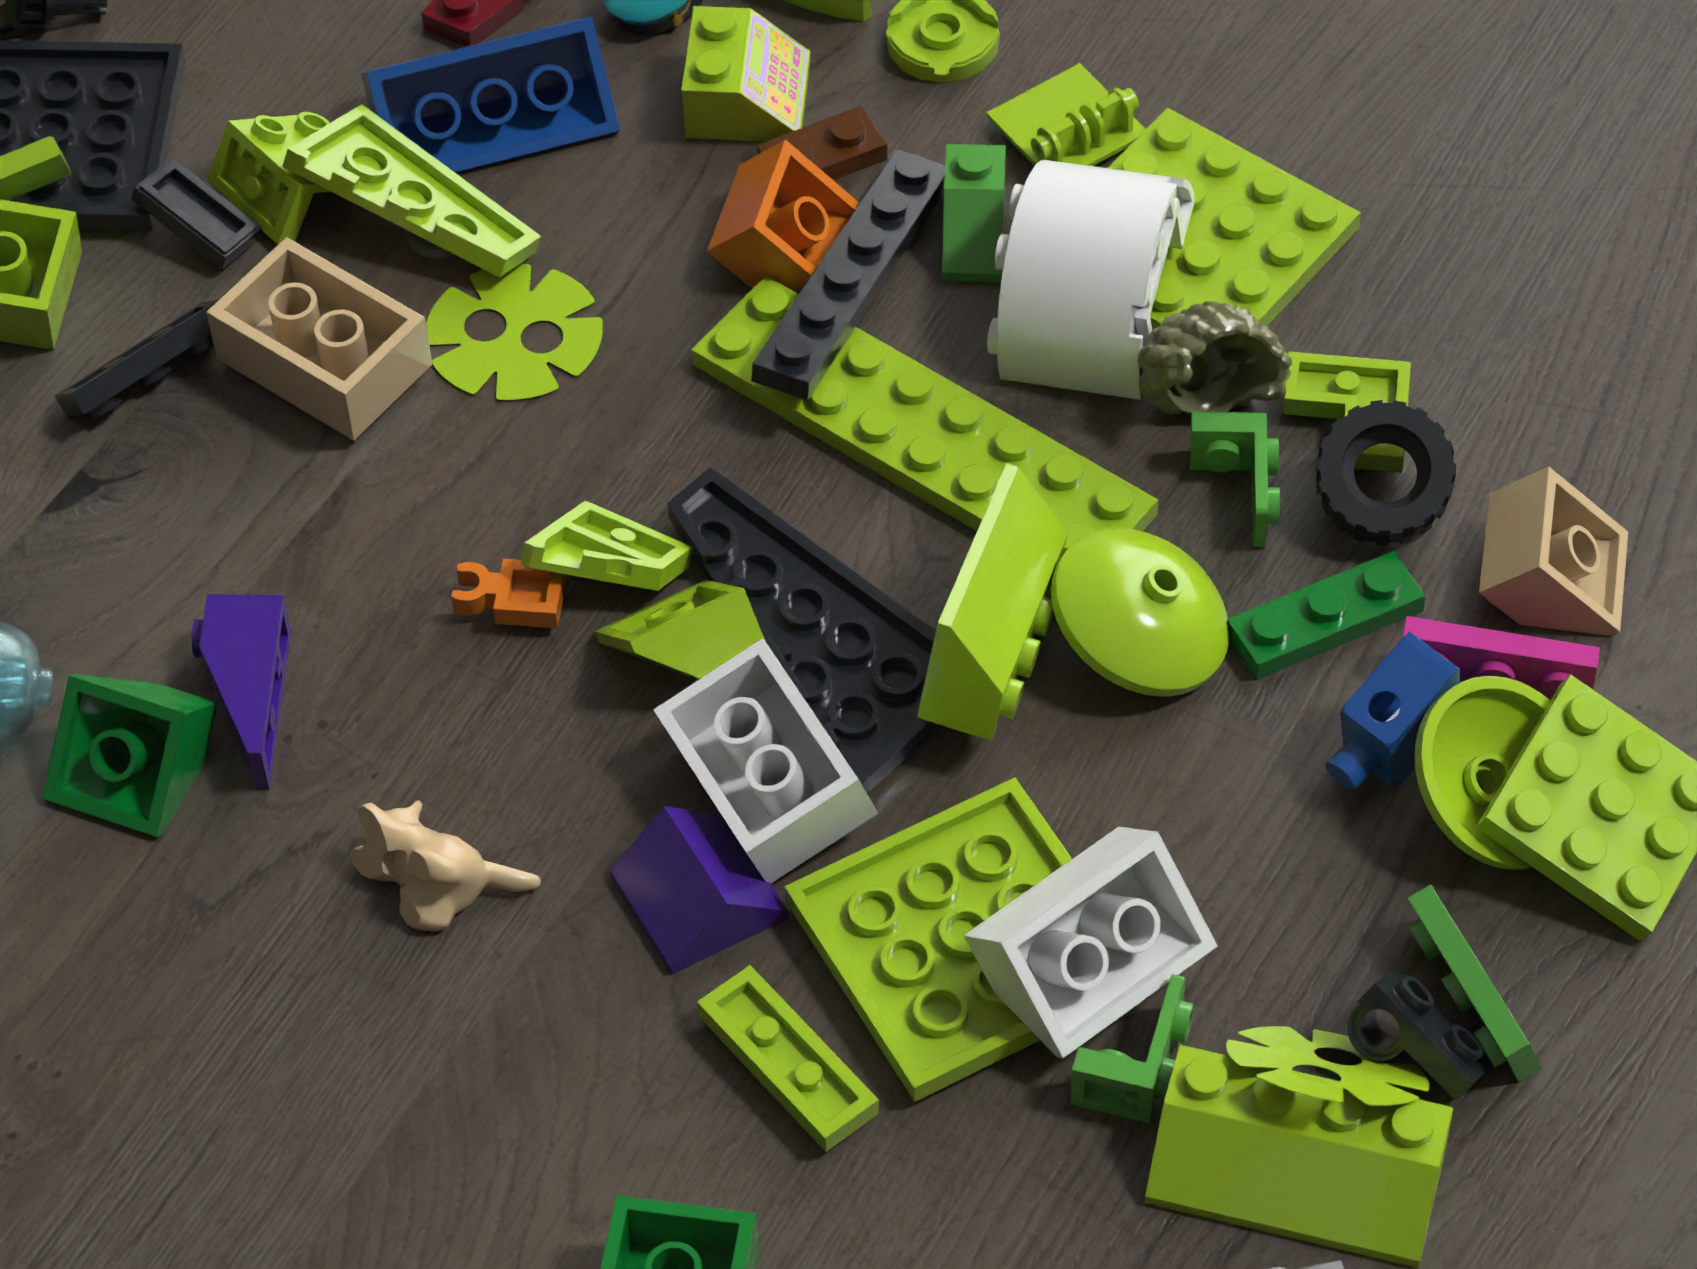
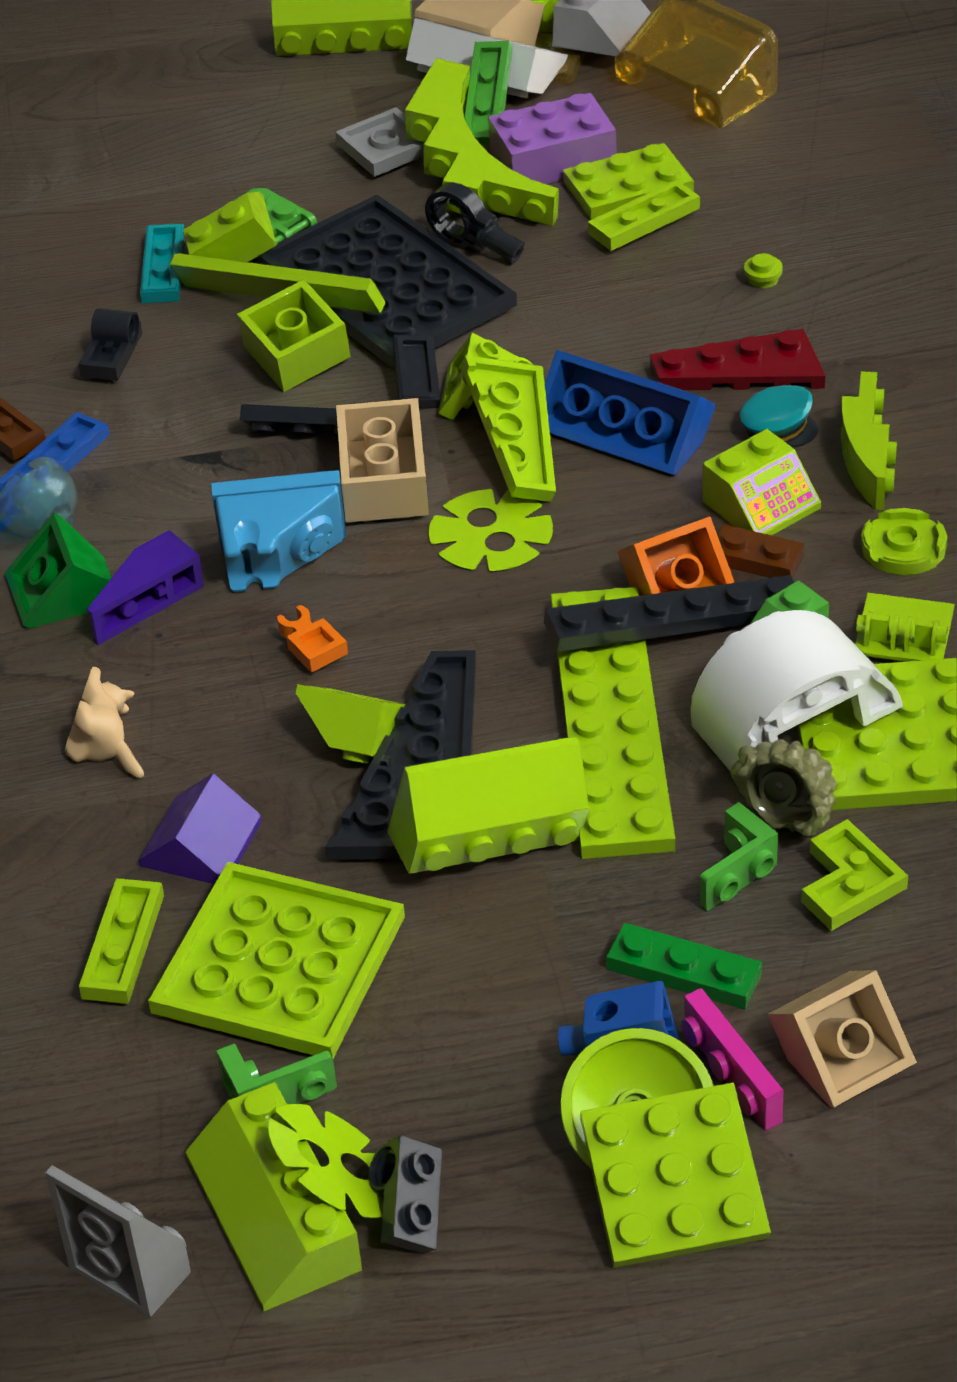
camera: 50 degrees right, 10 degrees down
(316, 503) = (276, 524): none -> dark azure piece
(606, 548) = (373, 648): lime wing -> none
(766, 761) = (291, 795): white brick -> none
(1092, 939) = (310, 1000): white slope -> none
(1140, 612) = (562, 897): lime dish -> none
(1393, 425) = (823, 943): black tyre -> none
(1471, 986) = (478, 1199): bright green plate -> none

